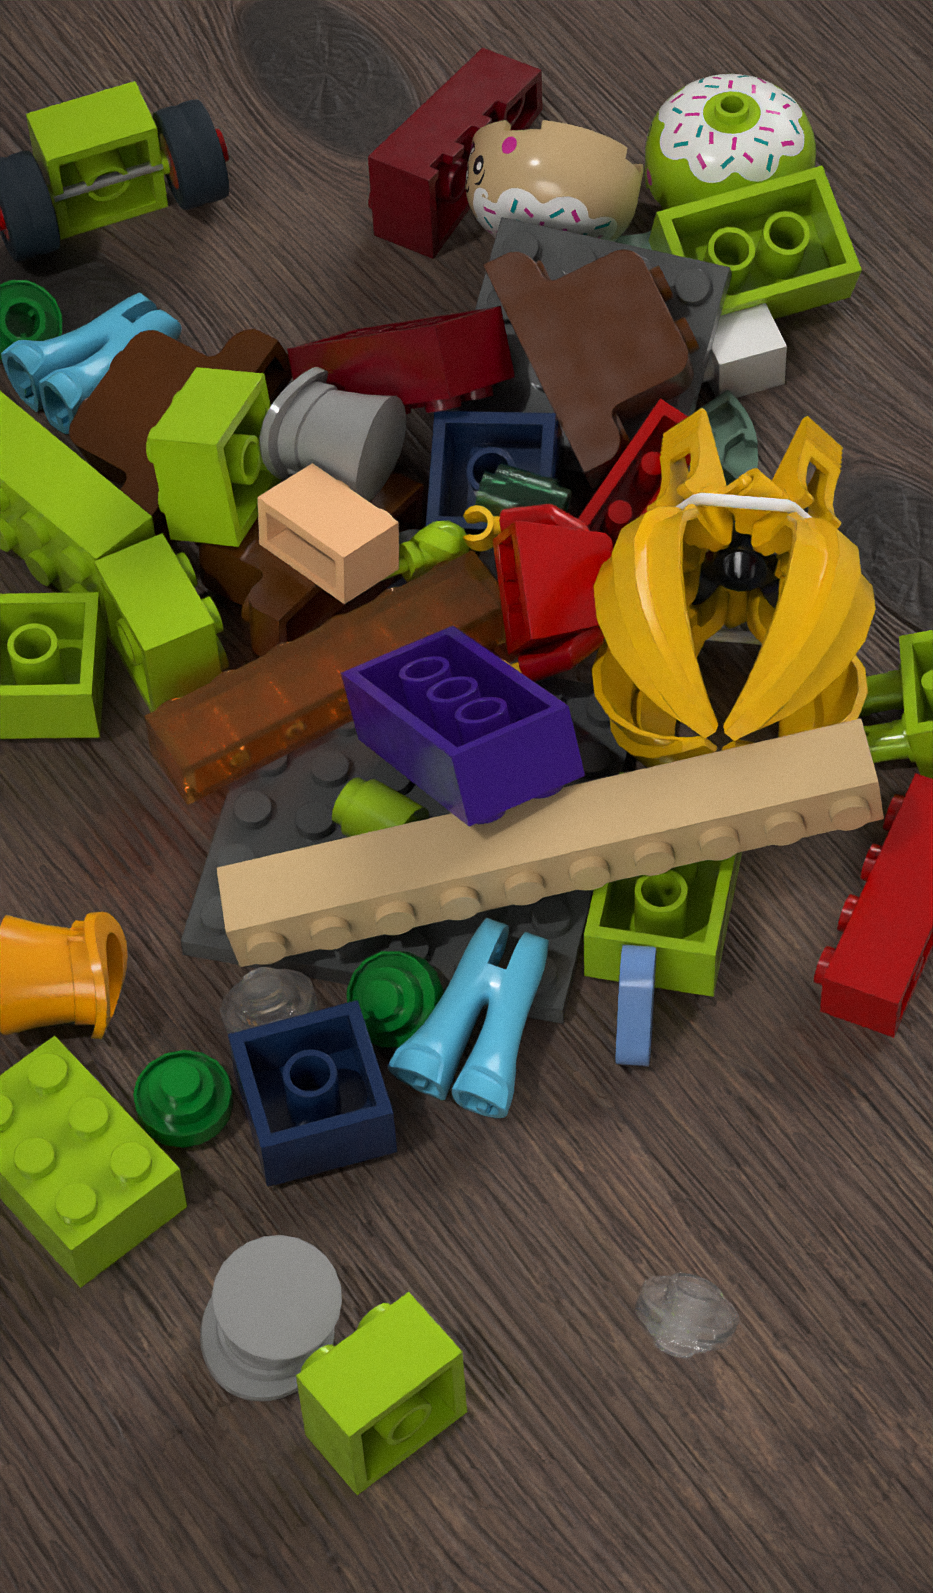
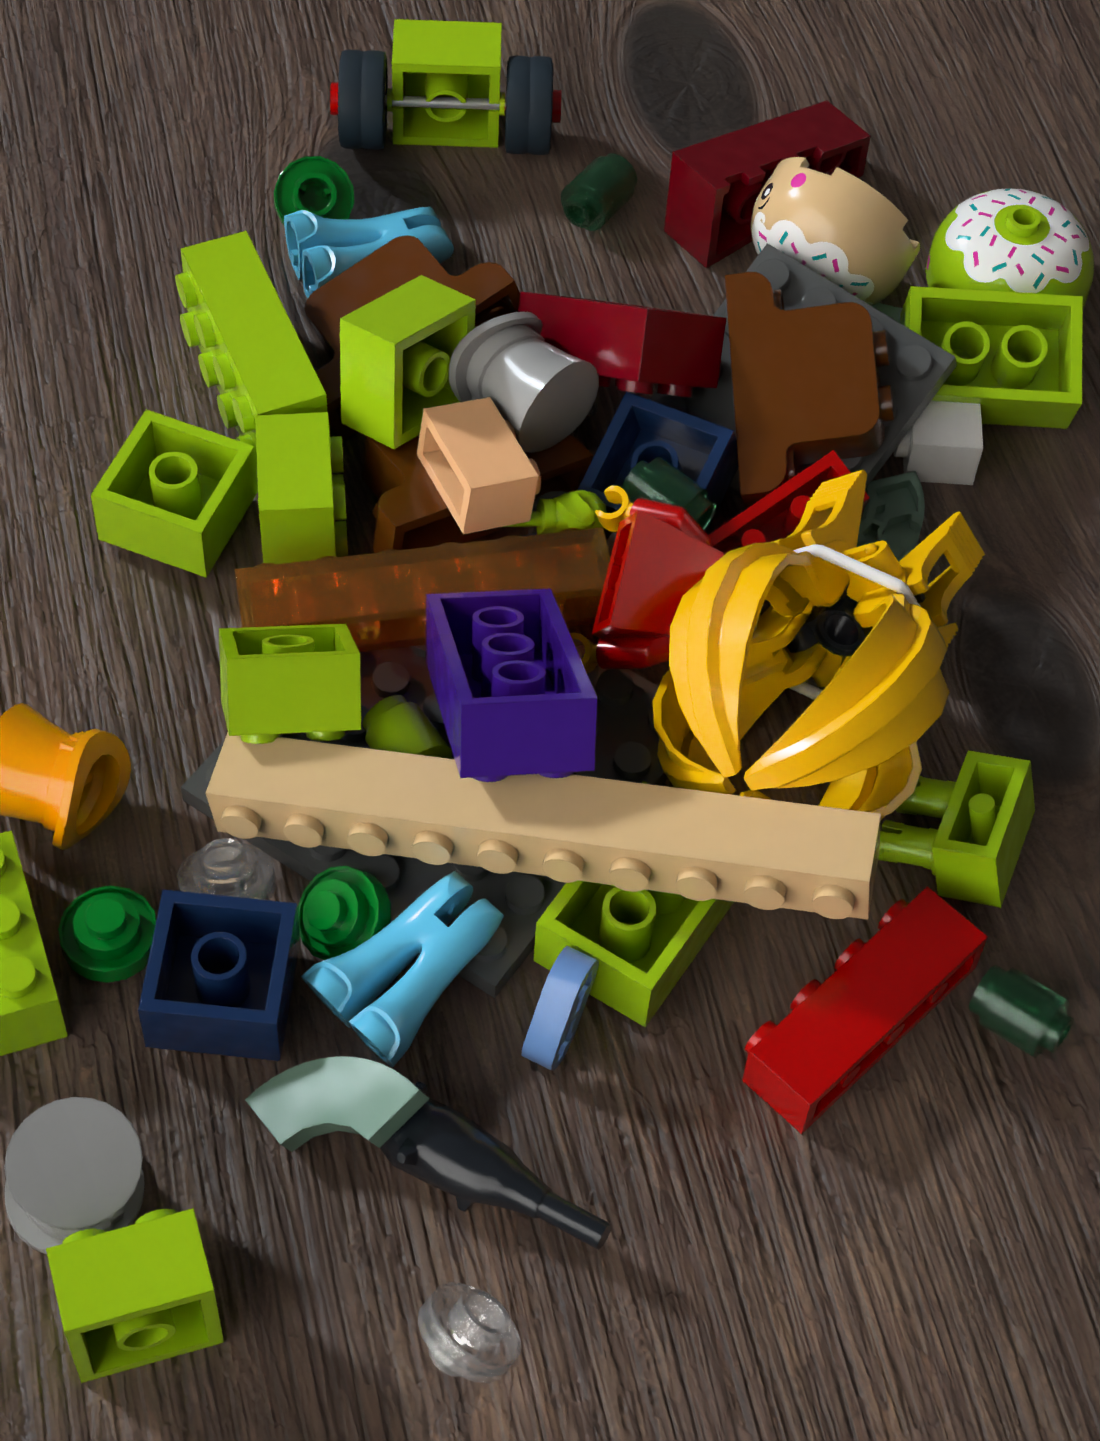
camera: 15 degrees right, 0 degrees up
(253, 800) = (290, 681): none -> lime brick
(296, 218) = (599, 191): none -> clear green brick
(471, 1158) = (336, 1096): none -> sand green tile
(614, 1172) = (478, 1168): none -> black piece

